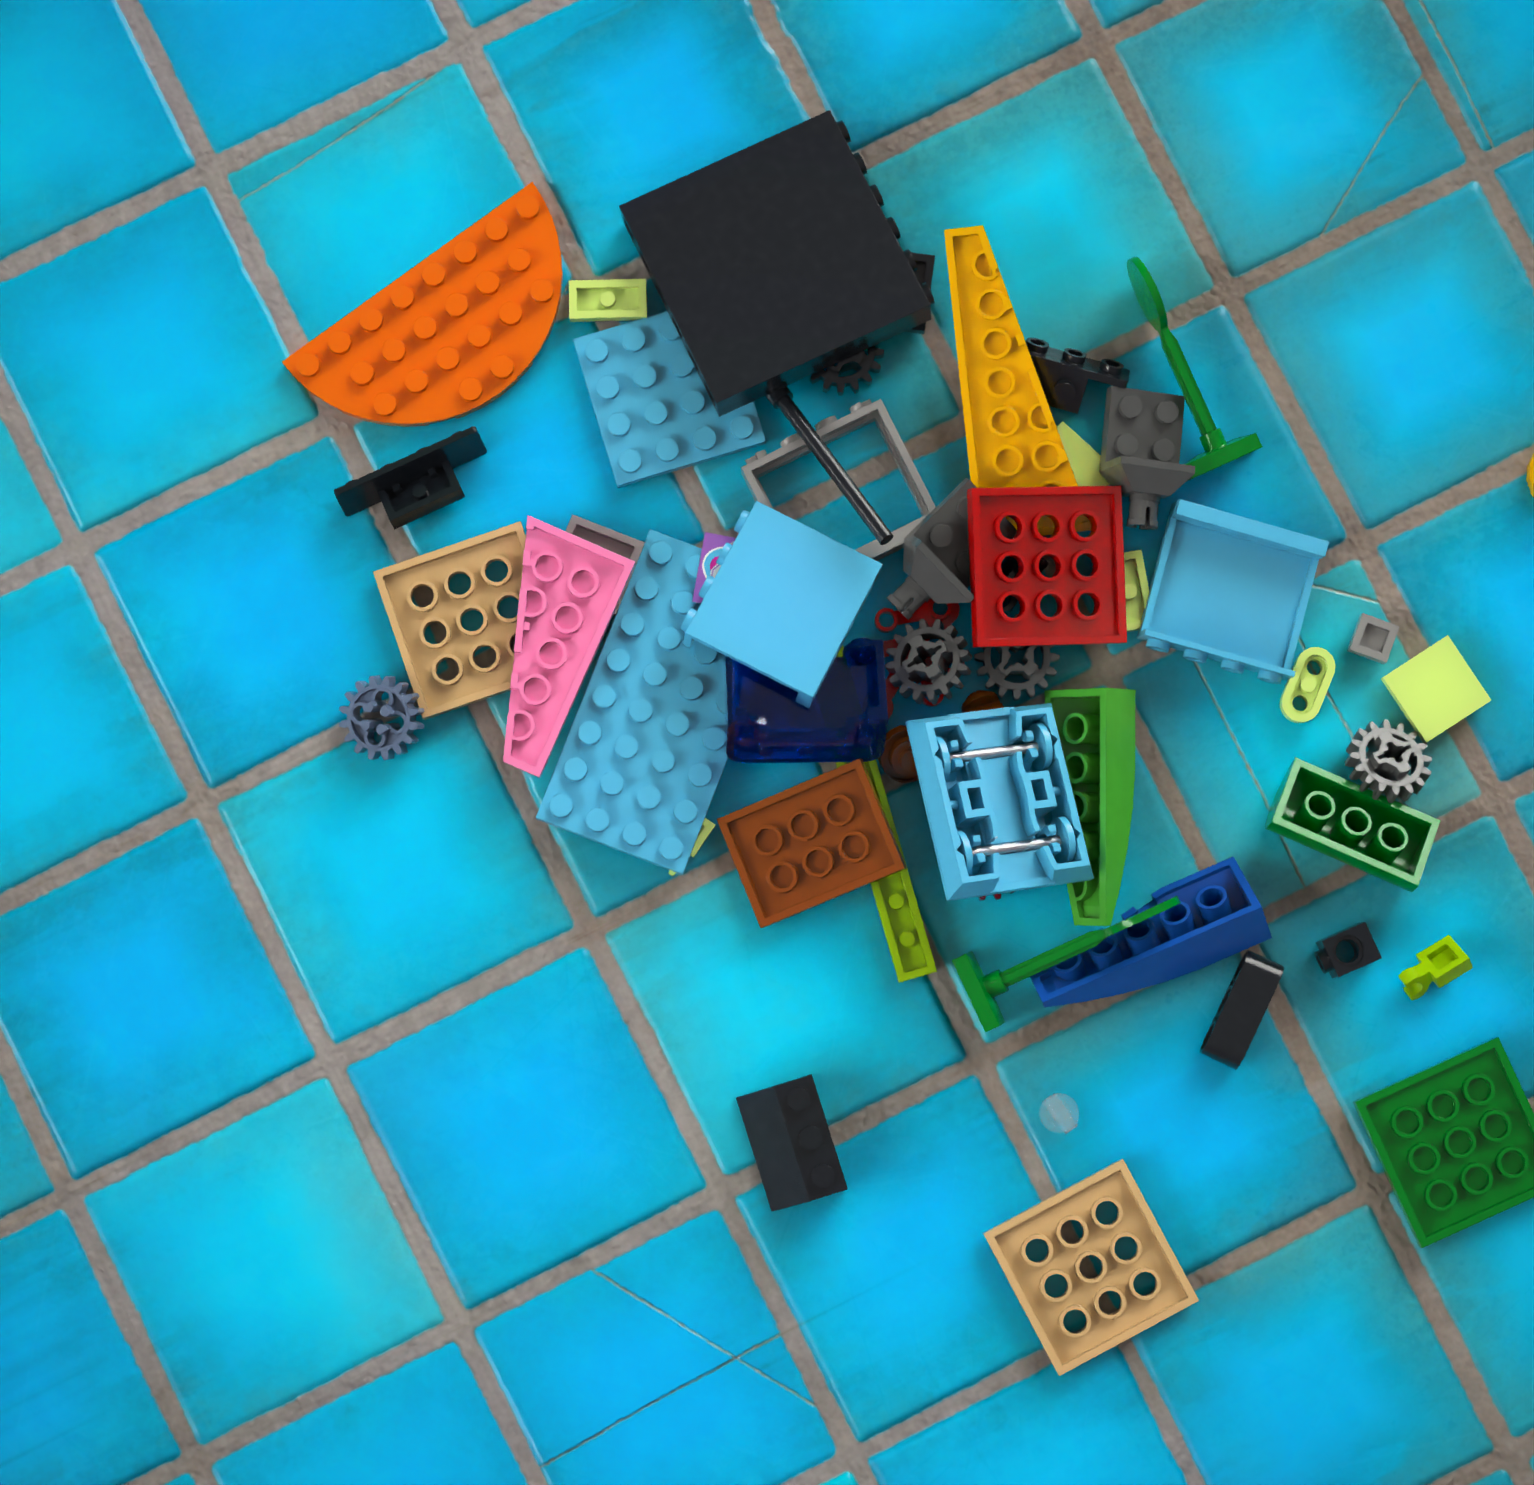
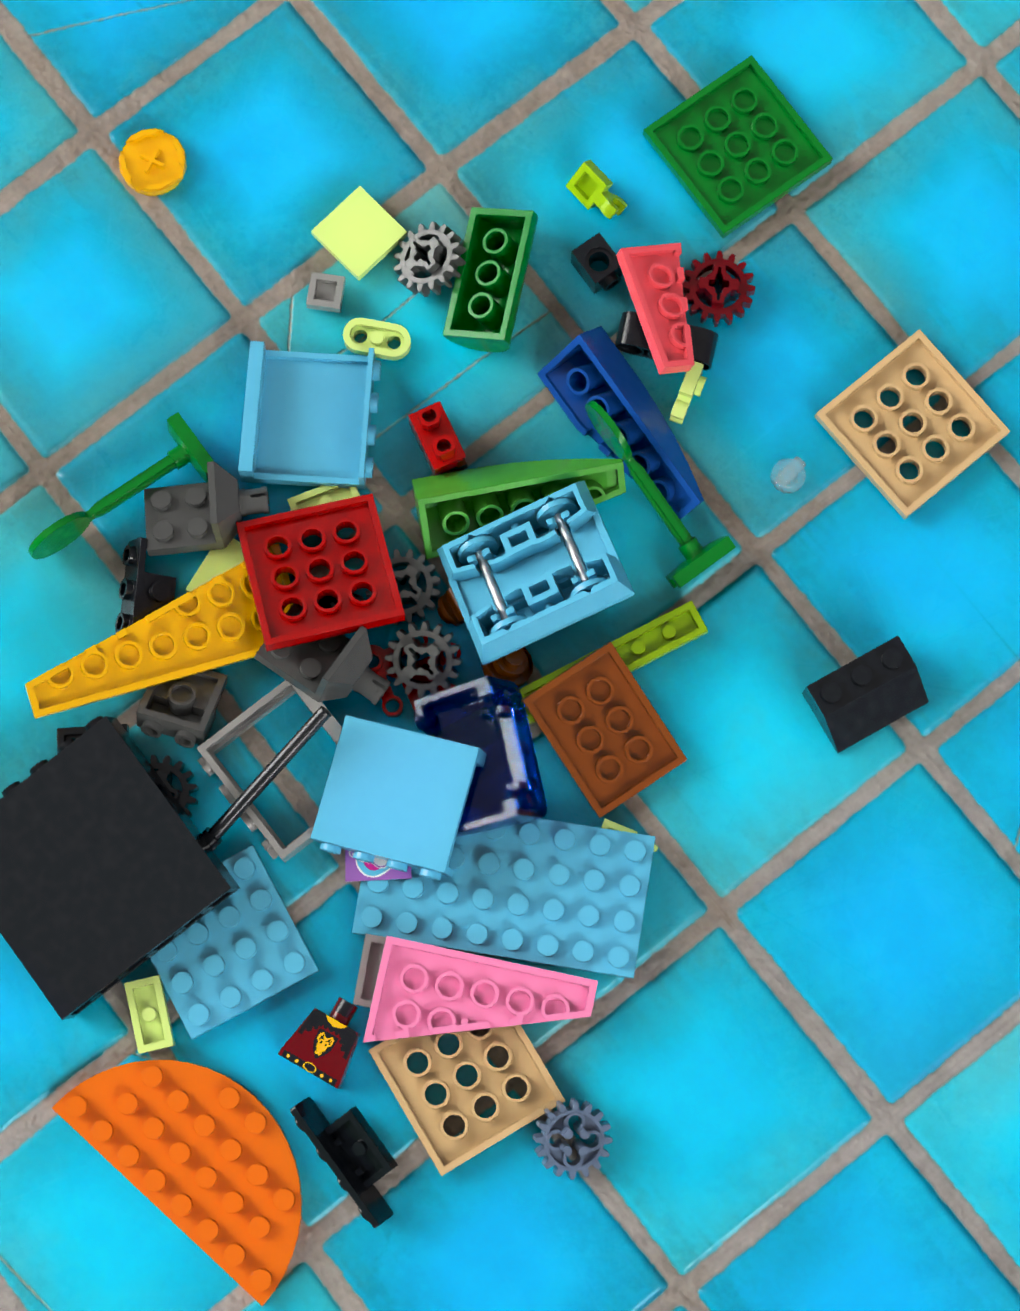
camera: 100 degrees left, 5 degrees down
(536, 477) = (324, 1043): none -> torso
(929, 393) = (182, 708): none -> dark grey plate
(1174, 728) = (437, 439): none -> red hips
(1184, 1026) = (691, 385): none -> yellowish green plate
(1293, 1007) = (658, 297): none -> coral wing
(1297, 1063) = (730, 288): none -> dark red gear

